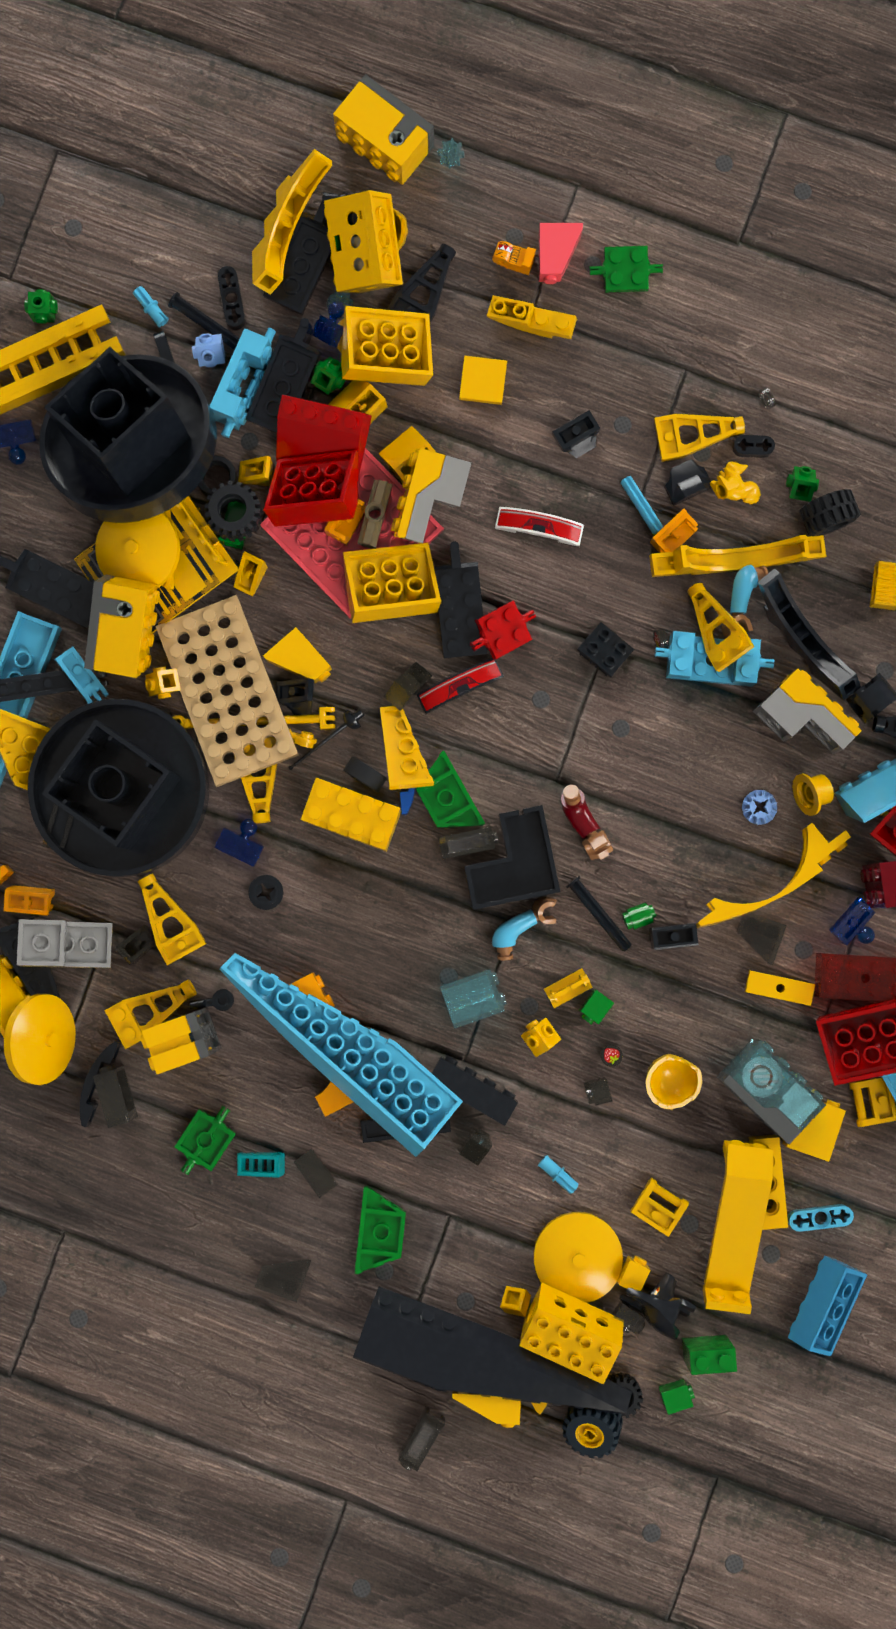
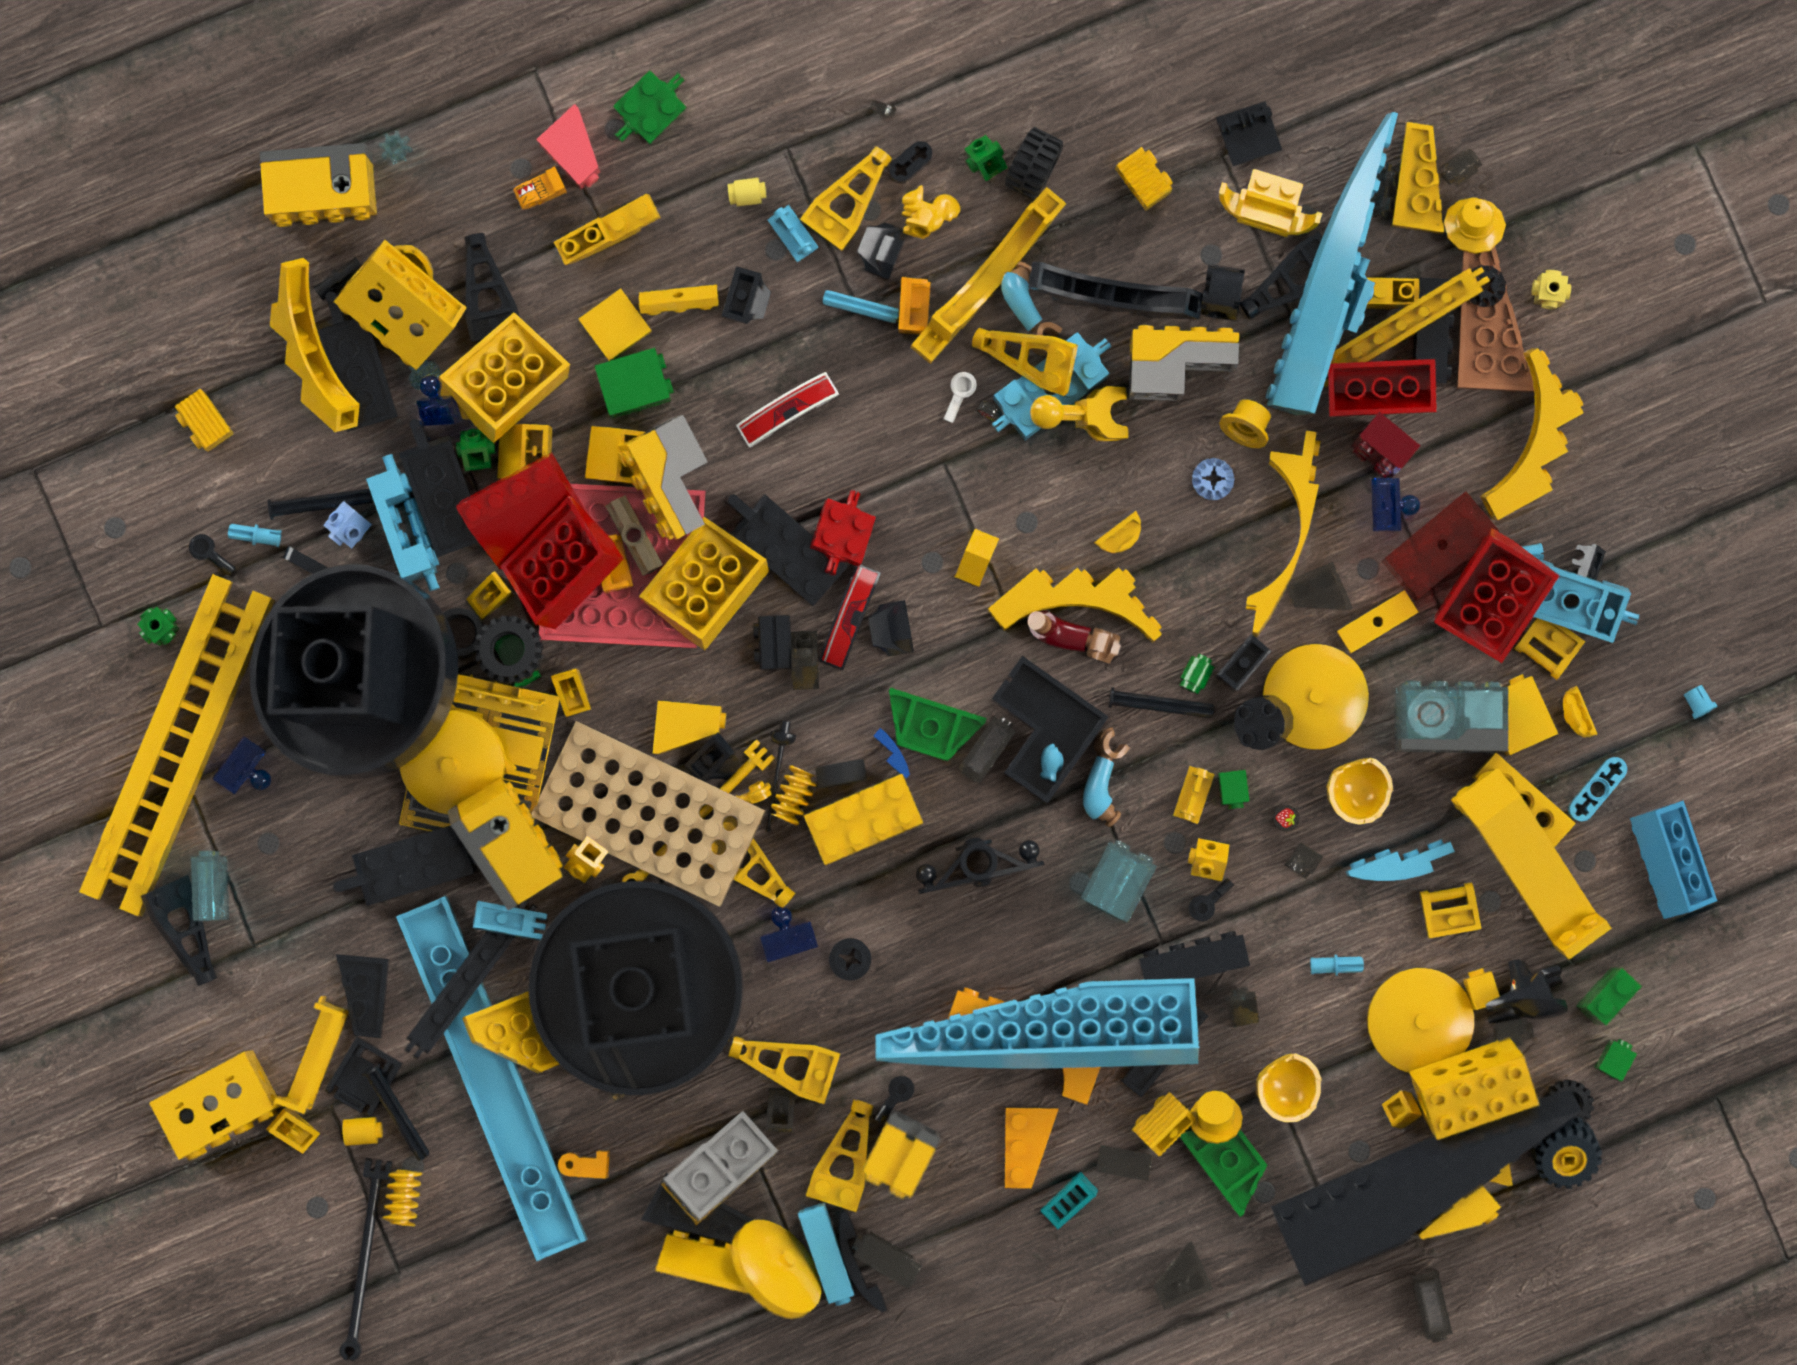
camera: 40 degrees left, 0 degrees up
(28, 900) = (647, 1161): light orange hinge -> none
(83, 1054) = (826, 1253): none -> medium azure slope
(113, 286) = (203, 548): none -> black plate
(184, 210) = (203, 420): none -> yellow brick
(205, 1140) = (1001, 1224): green plate -> none
(230, 306) = (299, 453): black beam -> none
(266, 1104) = (1025, 1142): none -> light orange wing
(324, 761) = (793, 795): none -> yellow piece
(361, 1172) = (1163, 1123): none -> yellow brick
(396, 1199) = (1216, 1117): none -> yellow piece
(399, 657) = (774, 642): none -> black brick
(403, 758) = (862, 728): yellow wing -> none
(435, 927) = (1028, 851): none -> black piece
(458, 1223) = (1289, 1088): none -> yellow cylinder
(461, 424) = (634, 382): none -> green brick
(478, 716) = (891, 629): none -> black slope
(498, 887) = (1051, 762): none -> medium azure animal
(509, 1062) = (1203, 907): none -> black plate
(535, 399) = (678, 299): none -> yellow tile
(570, 721) = (976, 557): none -> yellow slope
(605, 650) = (949, 465): black hinge -> none
(612, 796) = (1110, 595): none -> yellow arch
(637, 372) = (746, 192): none -> light yellow brick
(642, 422) = (792, 233): none -> medium azure hinge
(648, 1147) = (1390, 867): none -> medium azure slope
(652, 984) = (1263, 722): none -> black brick
(659, 610) = (963, 386): none -> white plate
(671, 789) = (1121, 536): none -> yellow plate
(698, 998) = (1323, 693): none -> yellow dish
(721, 696) = (1090, 413): none -> yellow piece
(851, 1159) = (1577, 714): none -> yellow plate

